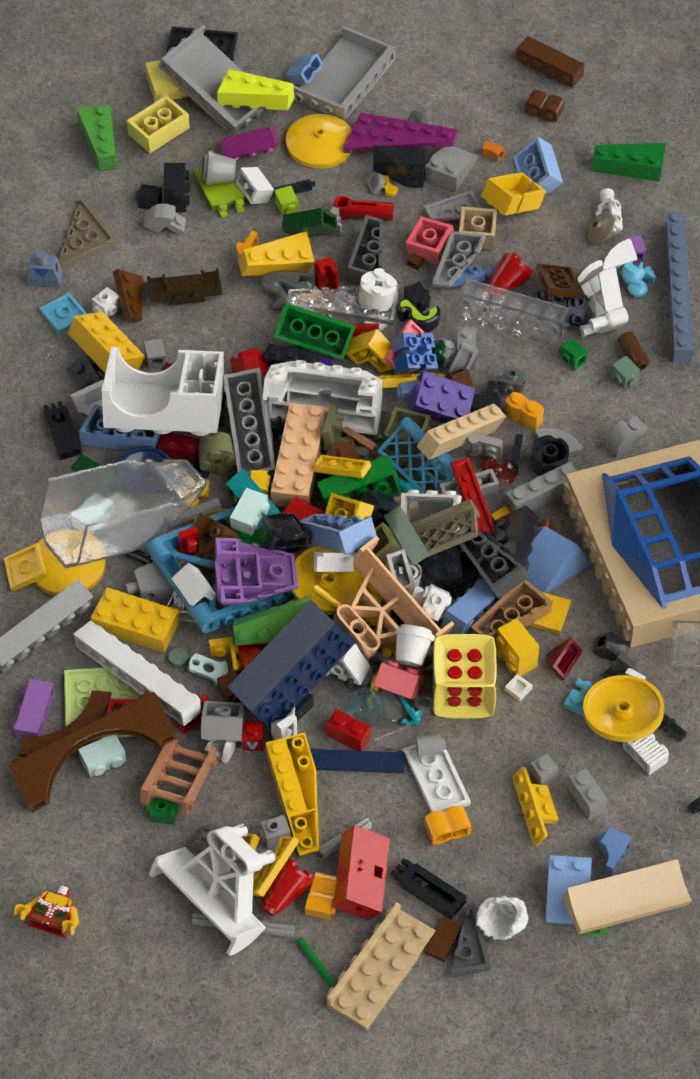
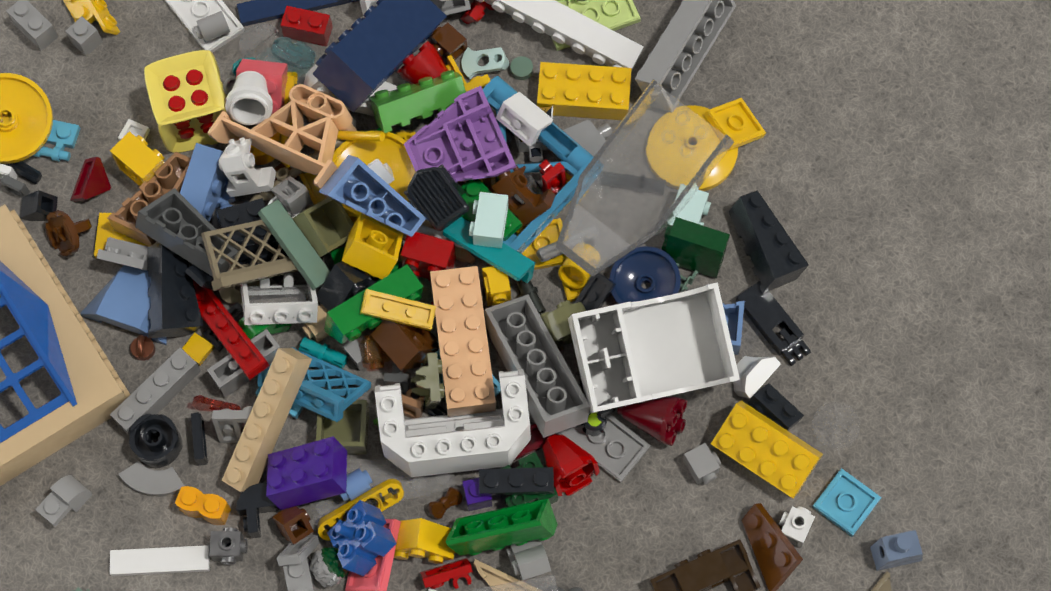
camera: 165 degrees right, 15 degrees up
(41, 461) = (766, 242): none -> black wedge
(547, 580) = (125, 253): none -> light grey bracket
(564, 391) = (159, 560): none -> white tile
(588, 614) = (64, 232): none -> reddish brown tile

